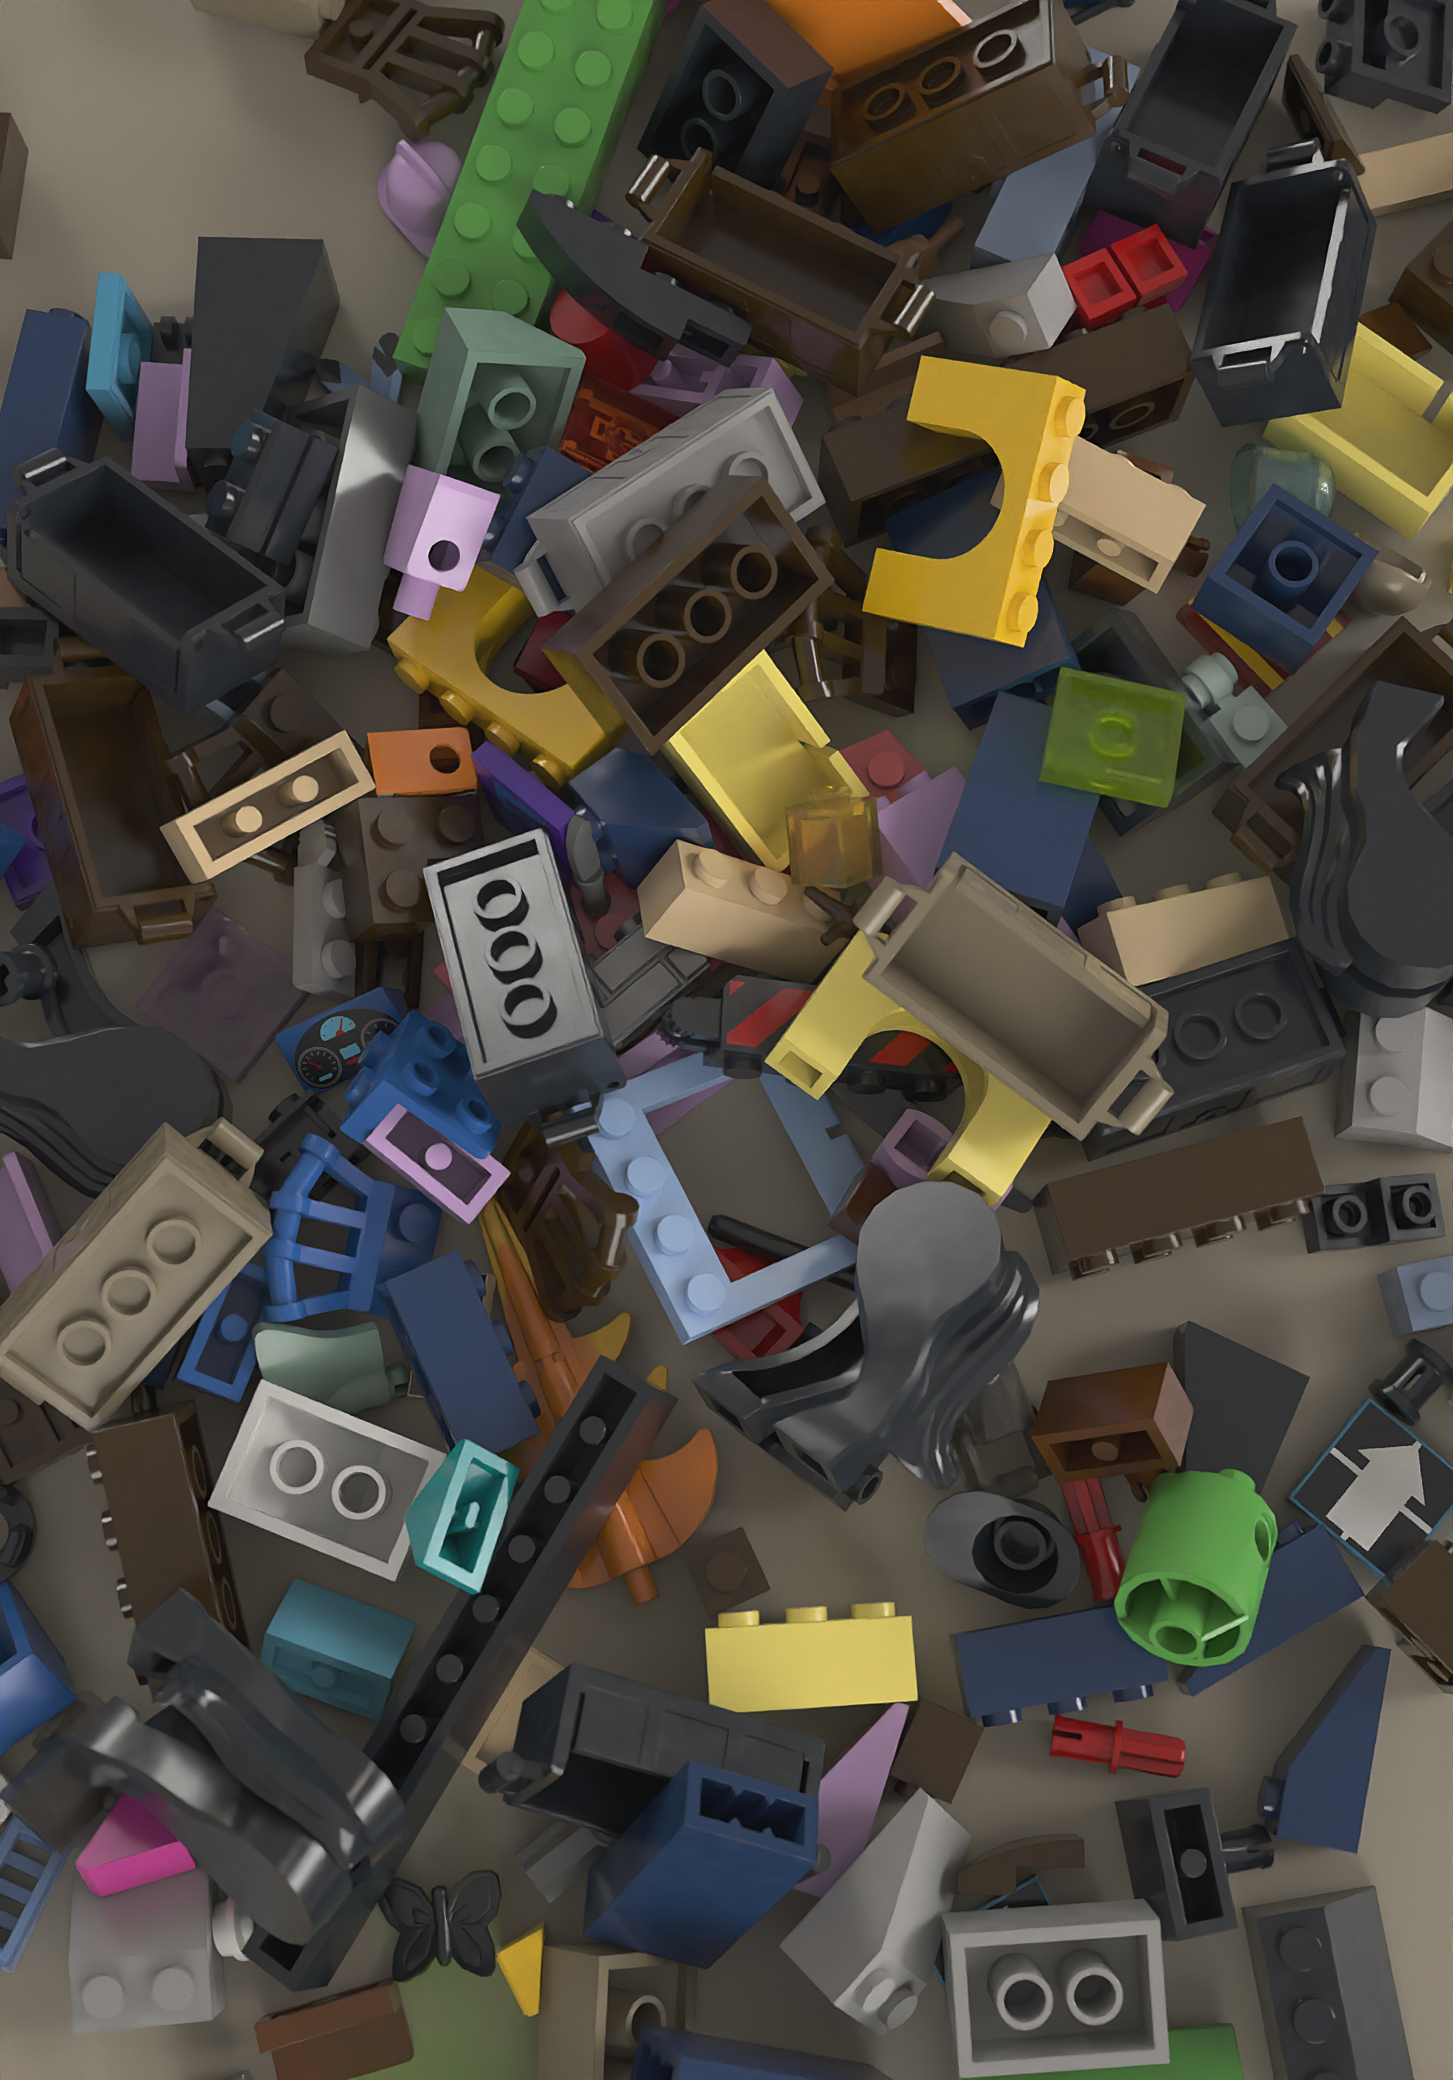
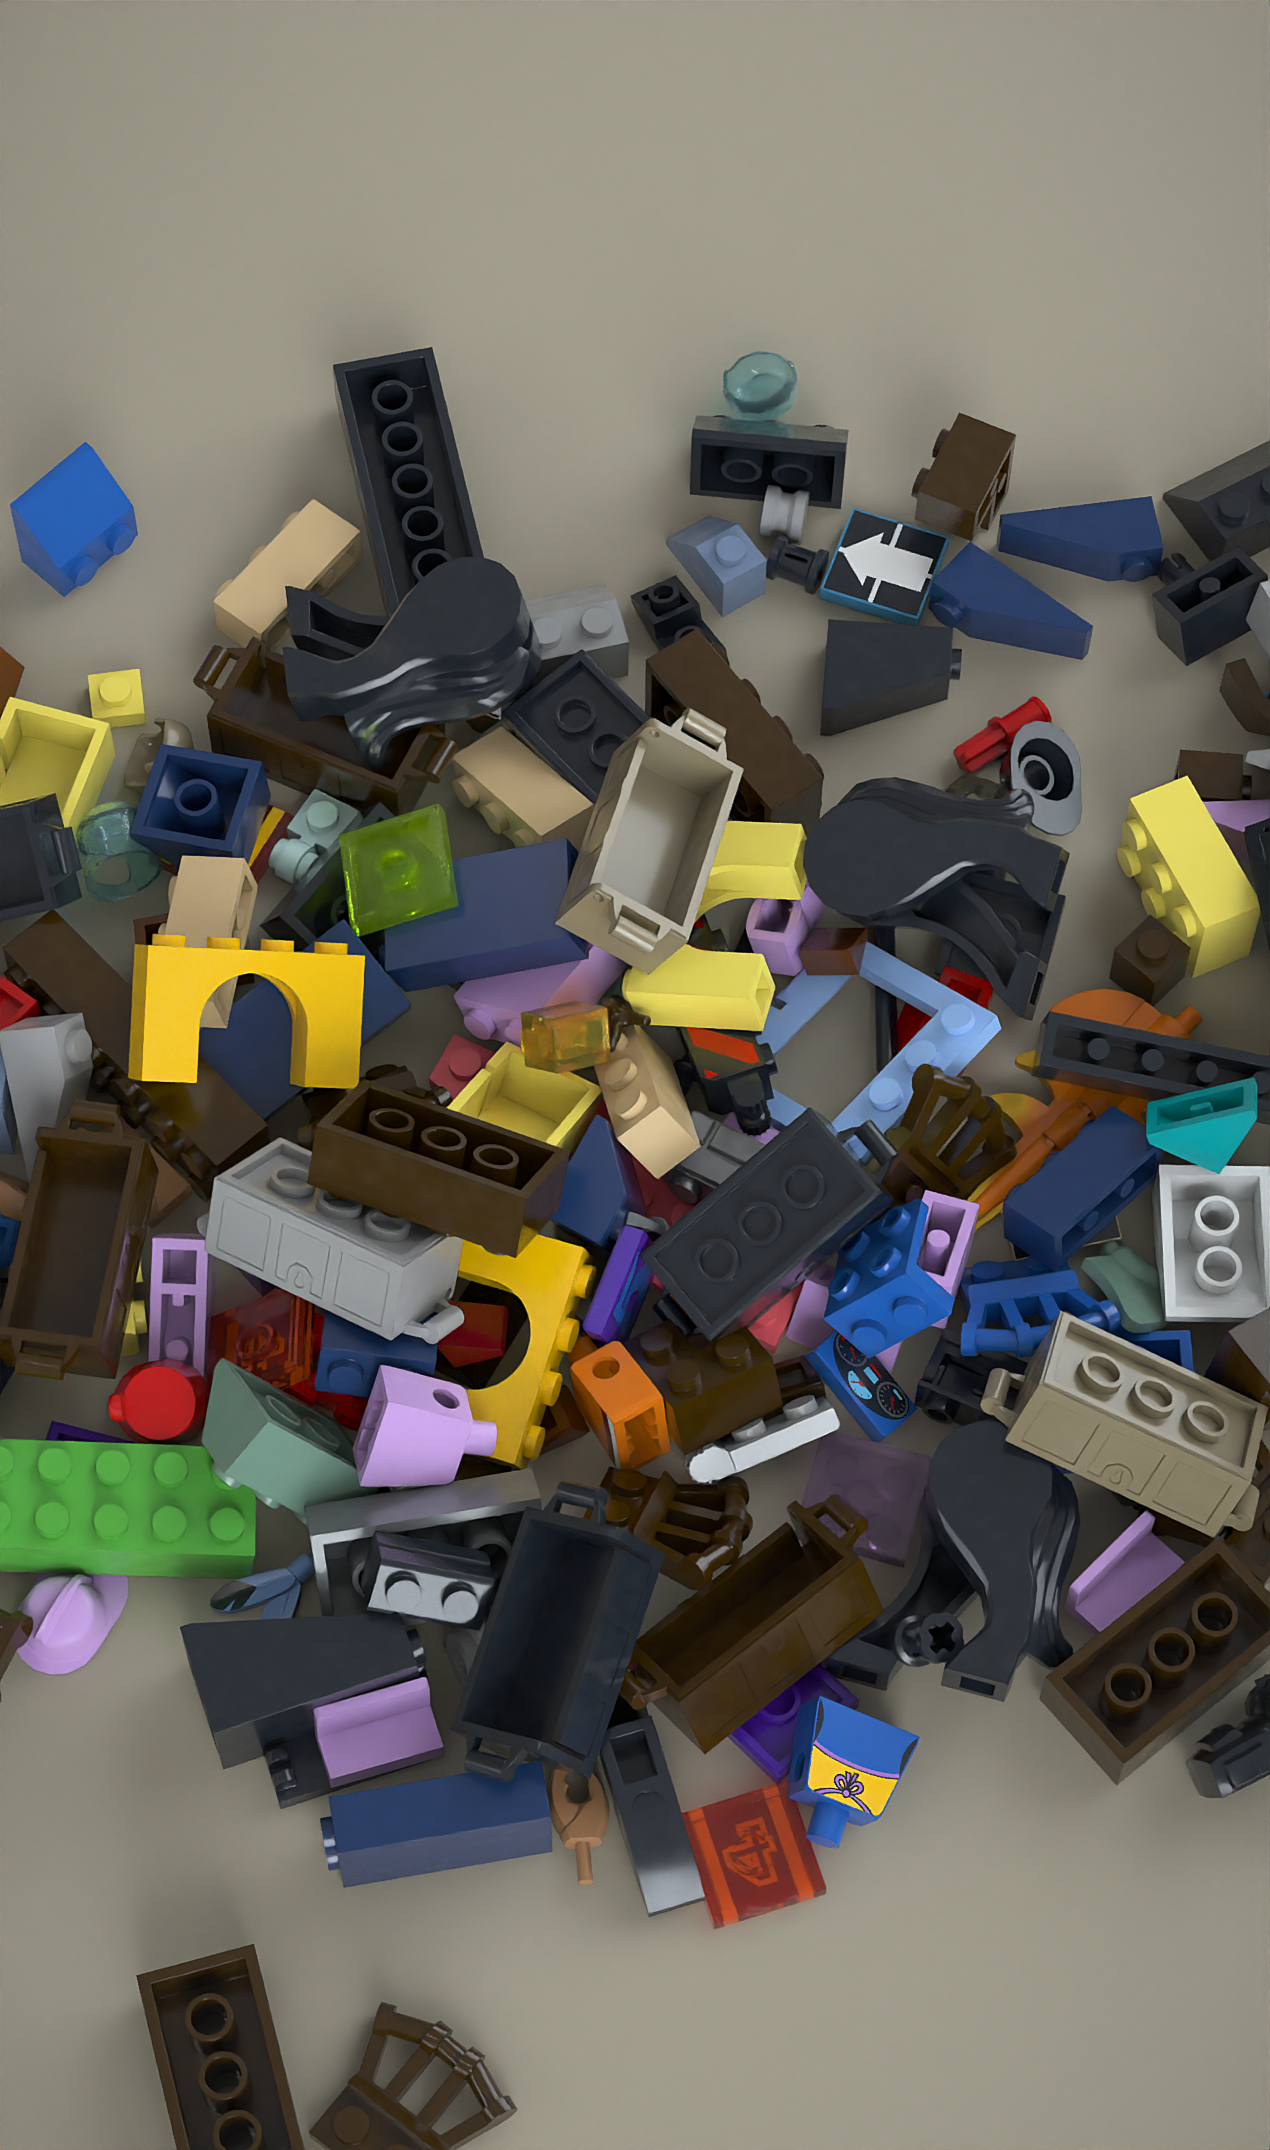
camera: 110 degrees left, 15 degrees down
(117, 348) = (306, 1797): dark azure tile -> none
(267, 807) = (709, 1475): tan brick -> none
(603, 274) = (141, 1358): black slope -> none
(1051, 1663) = (1105, 726): dark blue brick -> none
(1114, 1425) = (923, 729): reddish brown brick -> none
(1117, 1747) = (1148, 675): red axle -> none
(1197, 1567) = (1005, 636): bright green cylinder -> none

